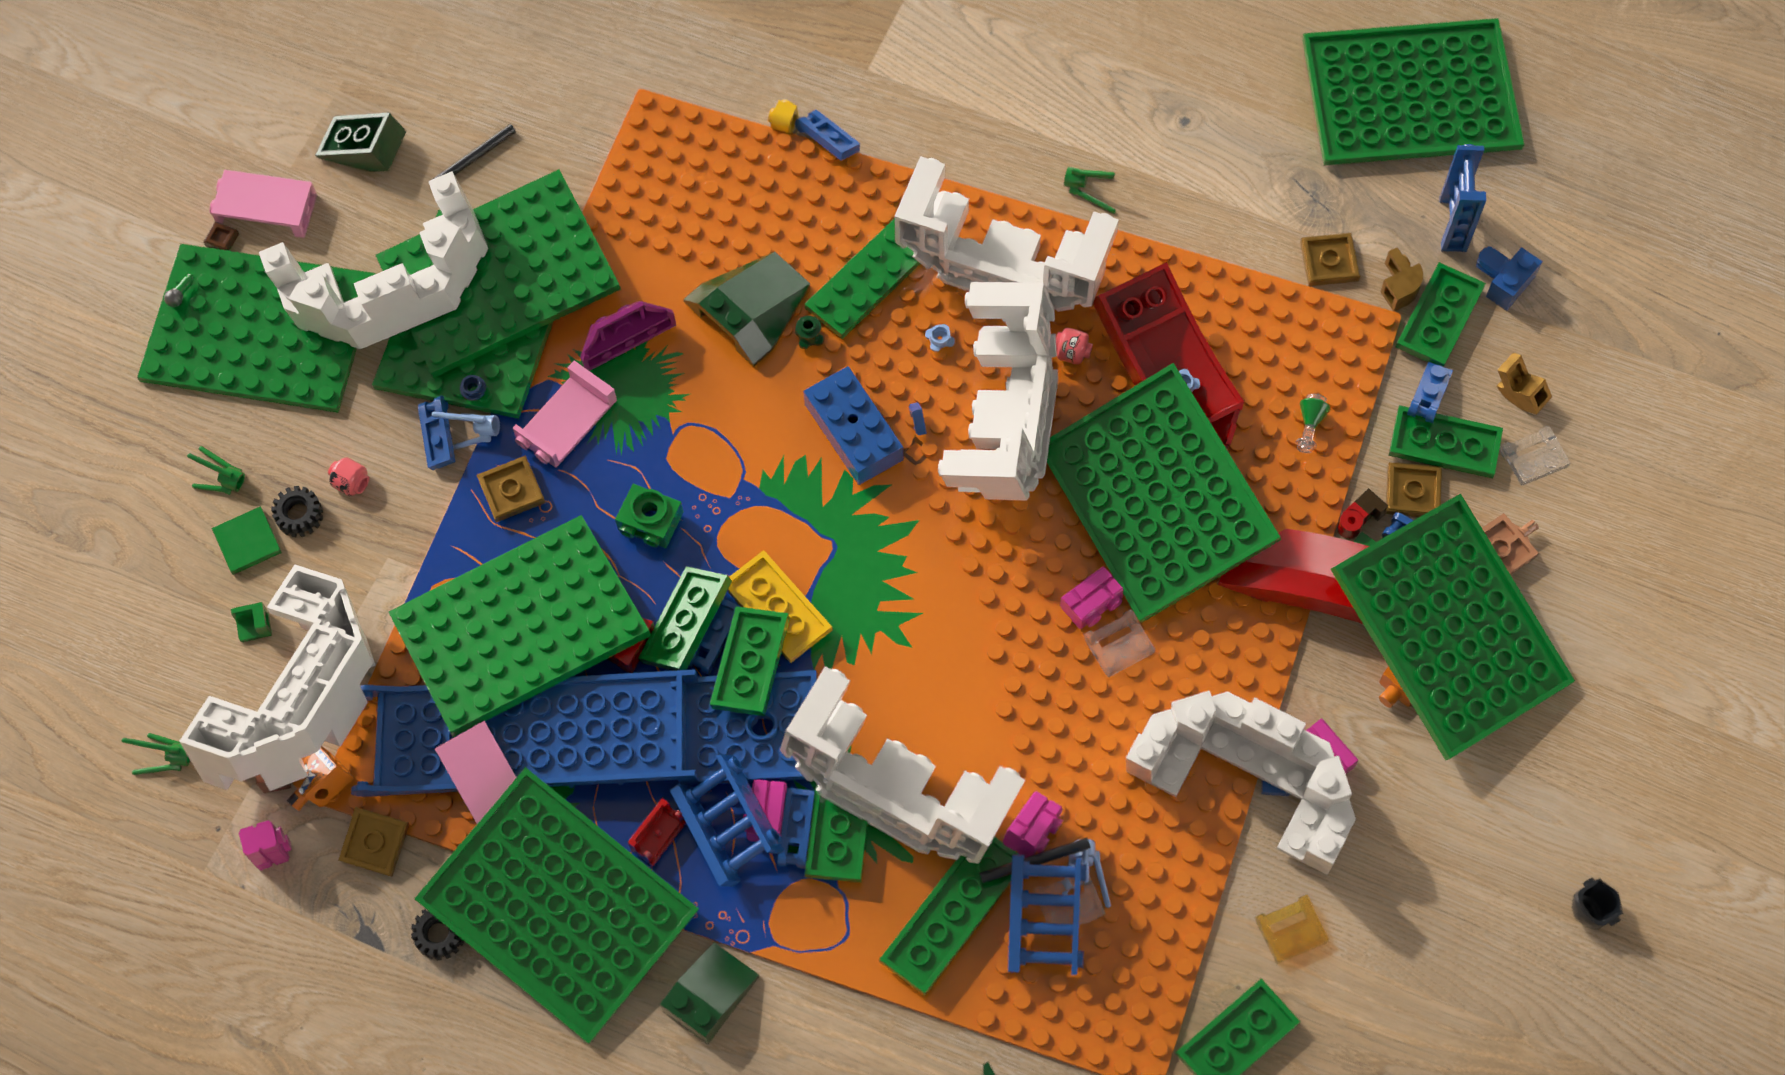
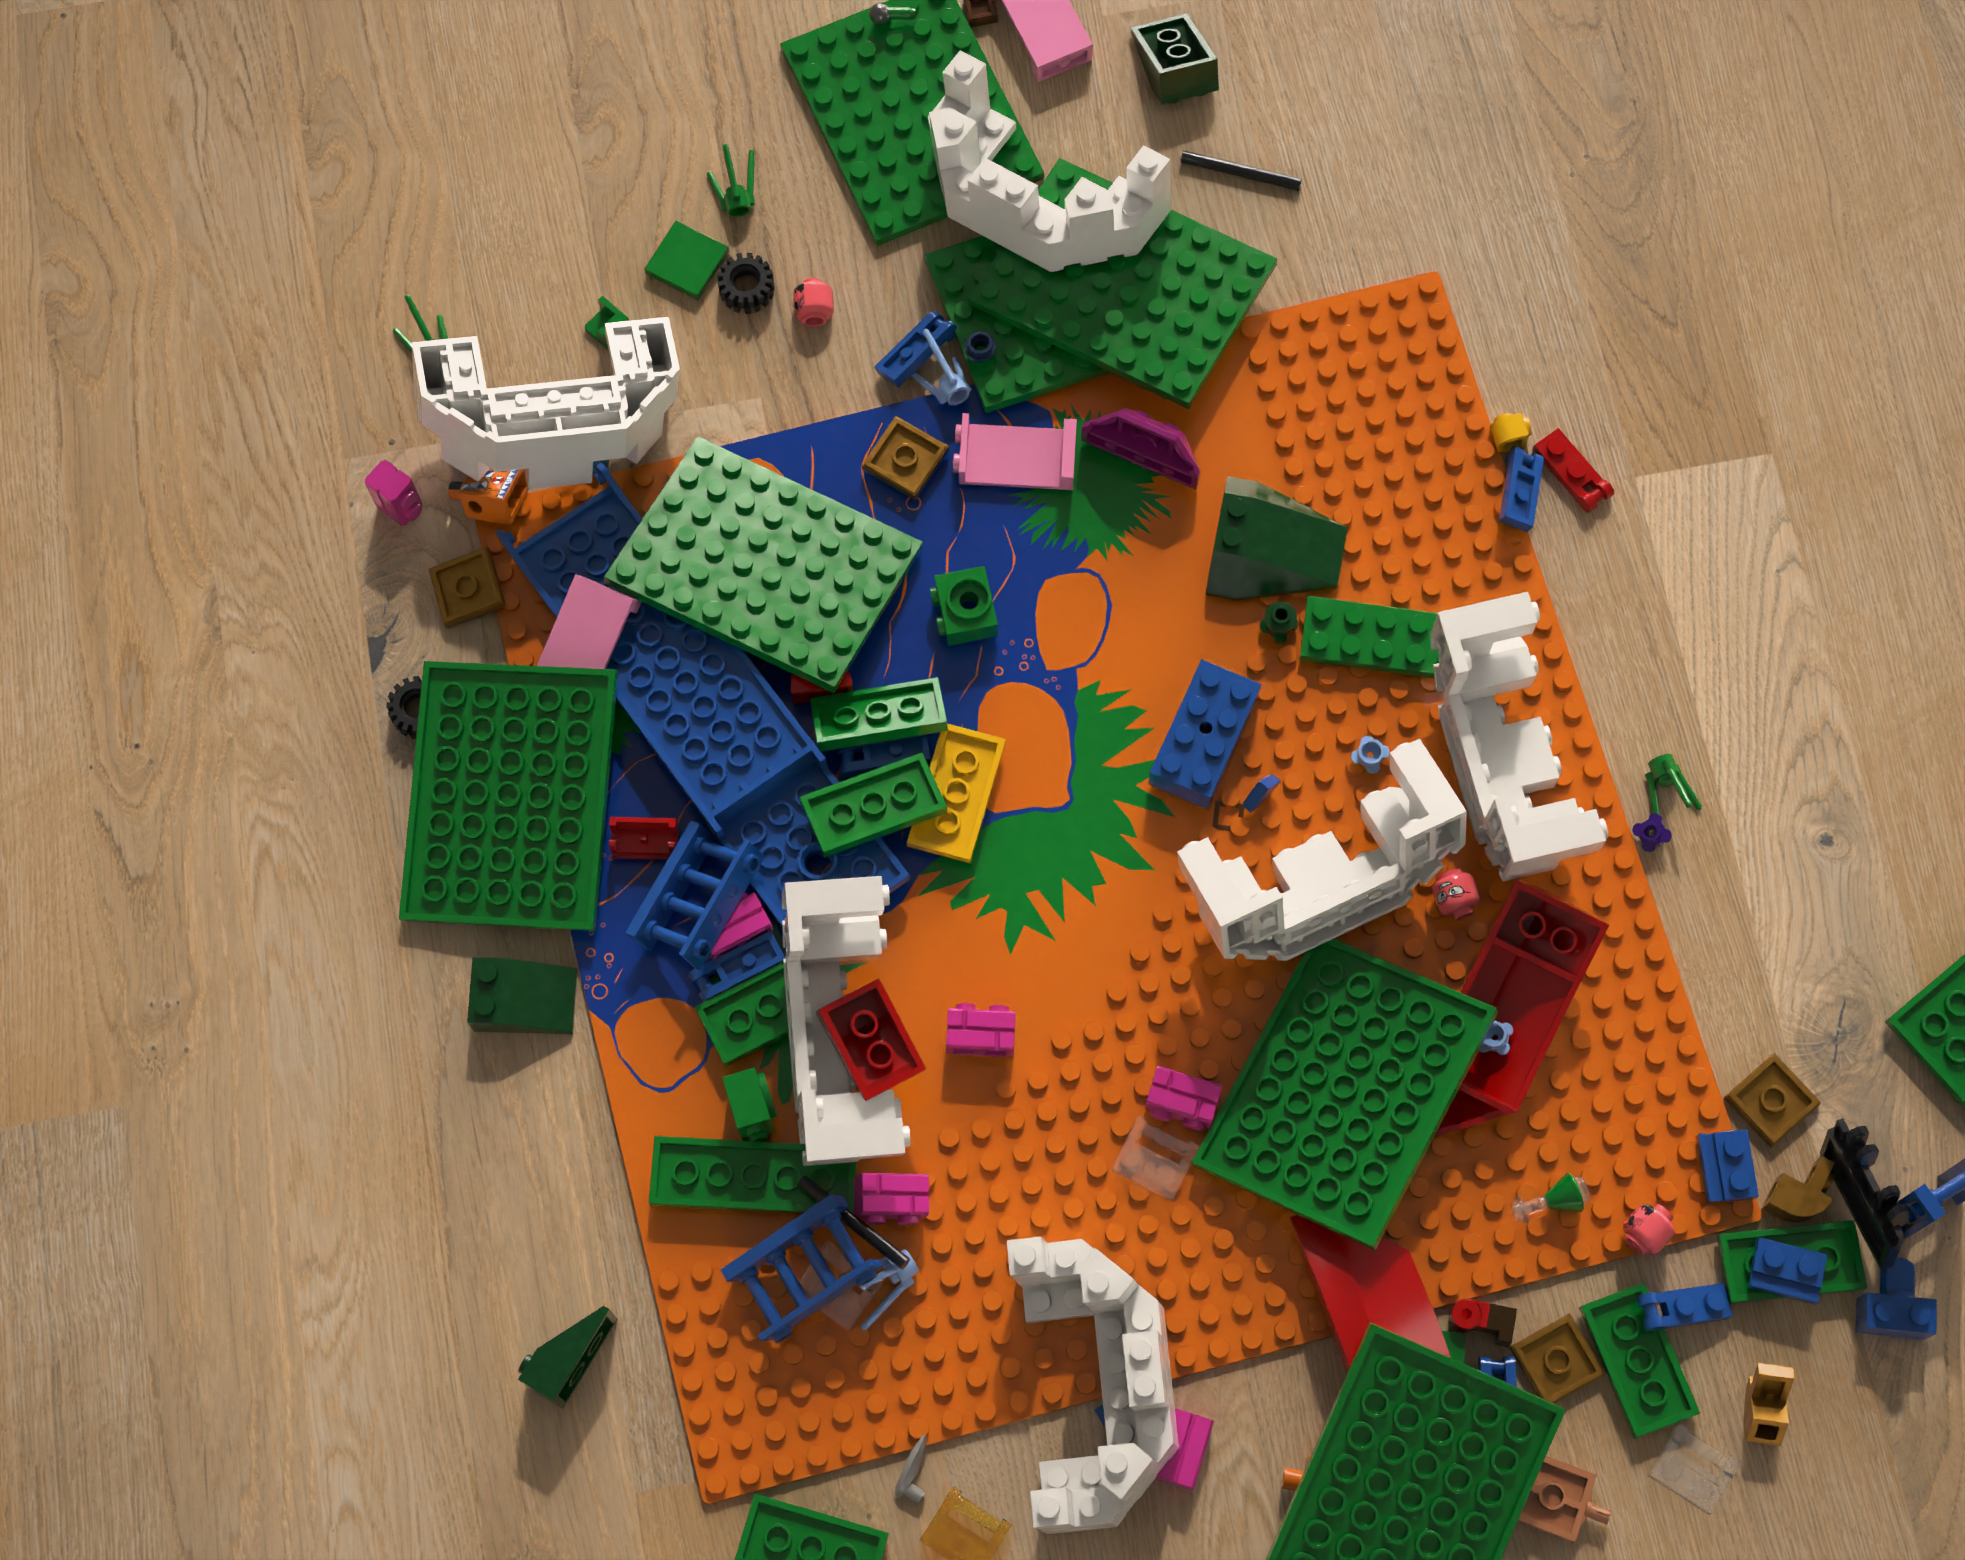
camera: 55 degrees right, 5 degrees up
(837, 100) = (1573, 470): none -> red plate
(905, 877) = (751, 1104): none -> green brick
(919, 762) = (870, 1039): none -> red slope
(956, 696) = (980, 1031): none -> dark pink brick
(1116, 206) = (1661, 833): none -> dark purple plate
(1233, 948) = (911, 1468): none -> light grey bar
(1356, 309) = (1727, 1166): none -> blue plate
(1368, 379) = (1648, 1229): none -> coral head
(1428, 242) = (1872, 1209): none -> black hinge
(1446, 319) = (1787, 1270): none -> blue plate

